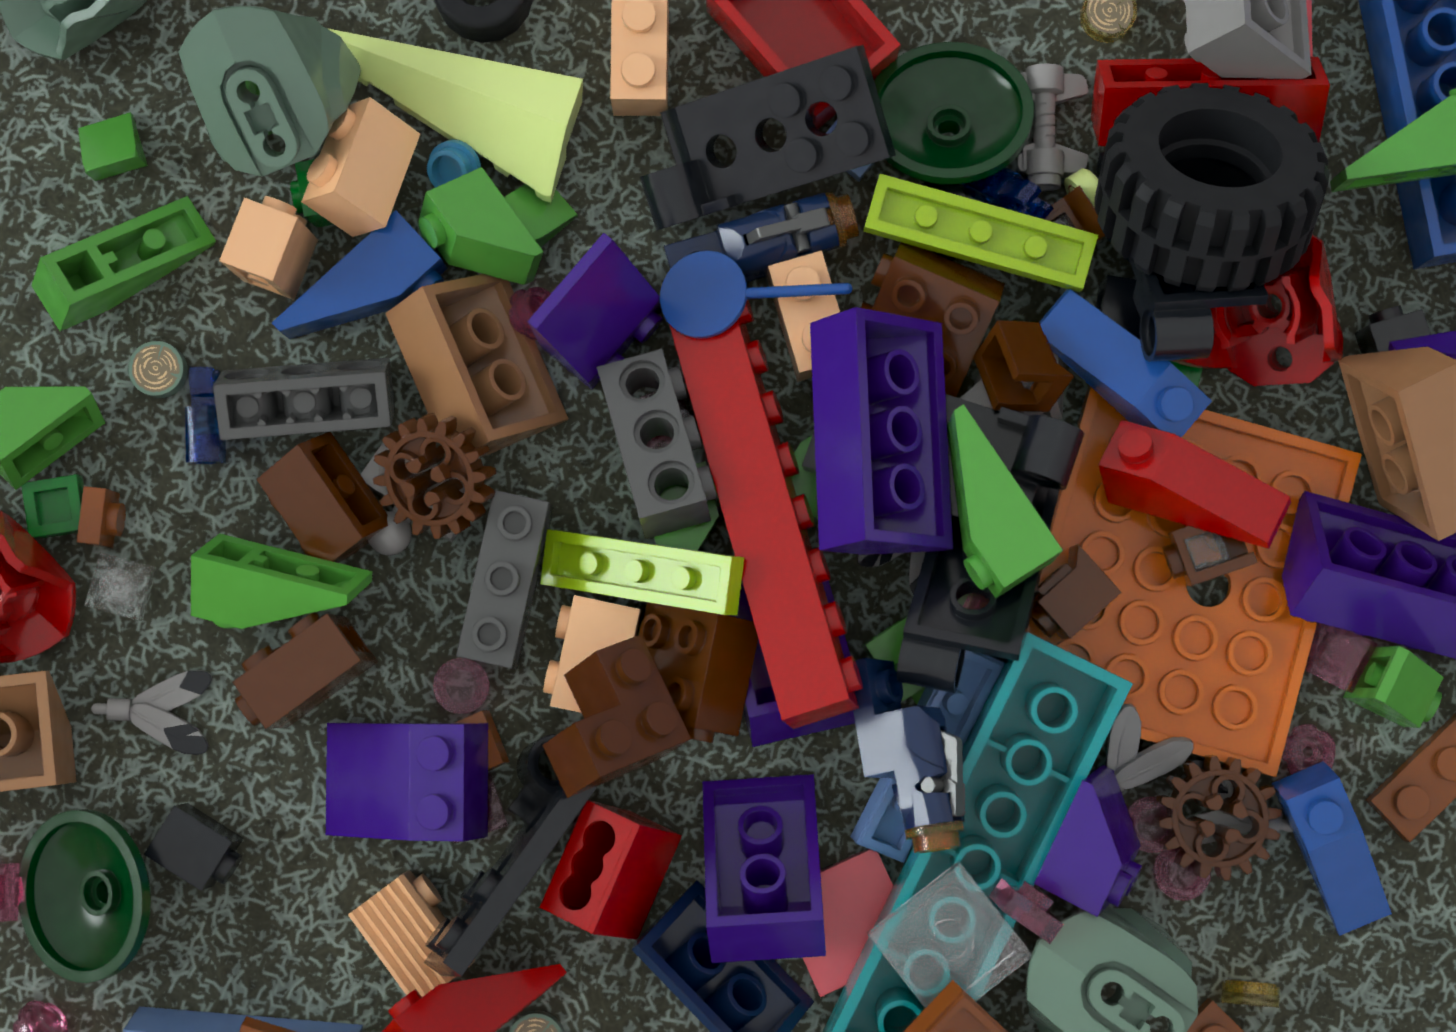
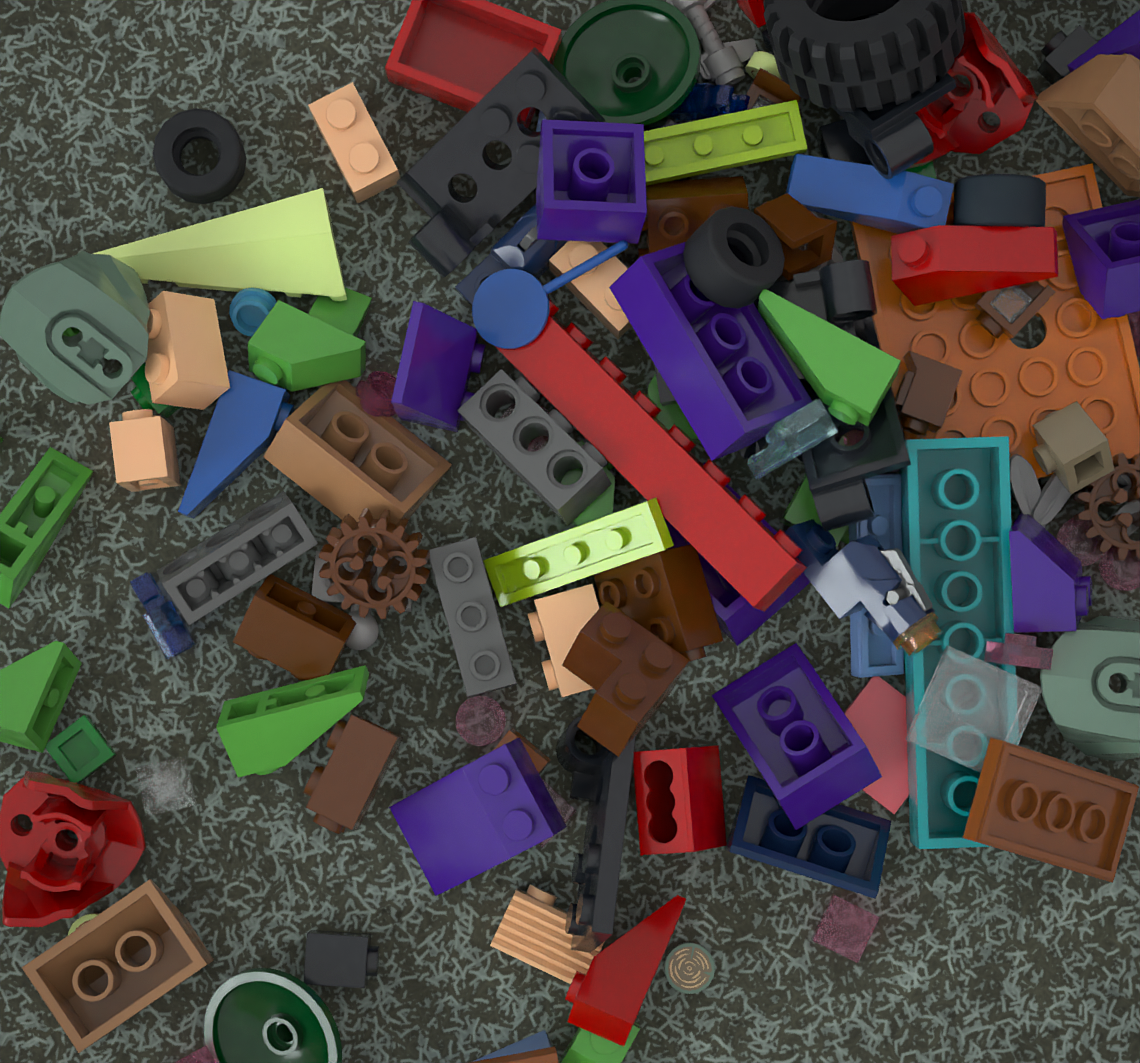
camera: 30 degrees left, 0 degrees up
(100, 517) = (122, 738): dark orange plate -> none
(151, 708) = (242, 871): light grey piece -> none
(158, 369) = (102, 598): tile -> none
(847, 208) = (591, 181): none -> dark purple slope
(914, 570) = (793, 437): none -> clear light blue tile
(950, 357) = (733, 257): none -> black tyre
(1191, 728) = (1072, 447): none -> dark tan brick
(1249, 442) = (999, 201): none -> black wheel

